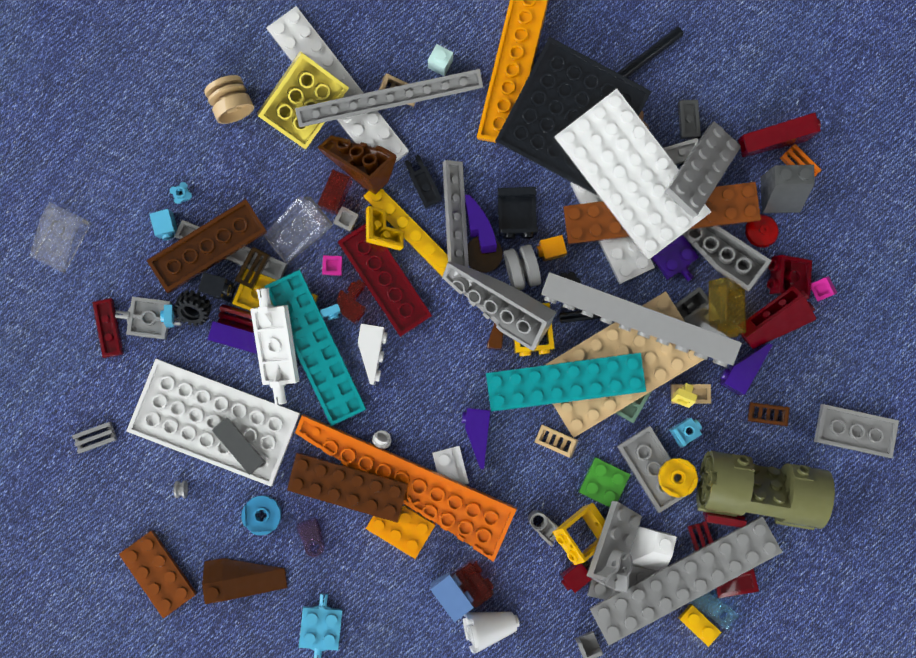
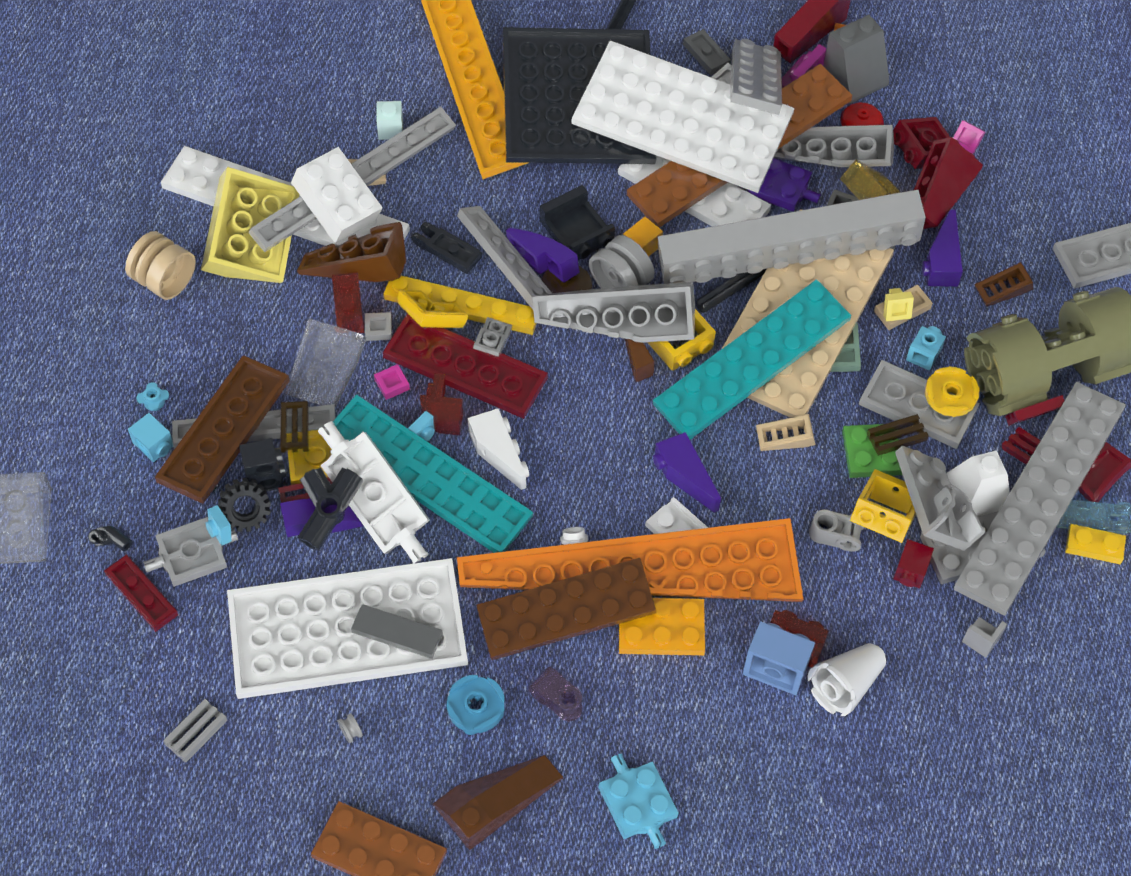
camera: 25 degrees left, 25 degrees down
(107, 278) = (109, 535): none -> black arm
(238, 332) = (323, 495): none -> black piece
(365, 111) = (336, 195): none -> white brick
(411, 270) = (492, 337): none -> light grey slope
(640, 489) = (890, 428): none -> dark brown tile
(744, 172) = (804, 64): none -> magenta bracket

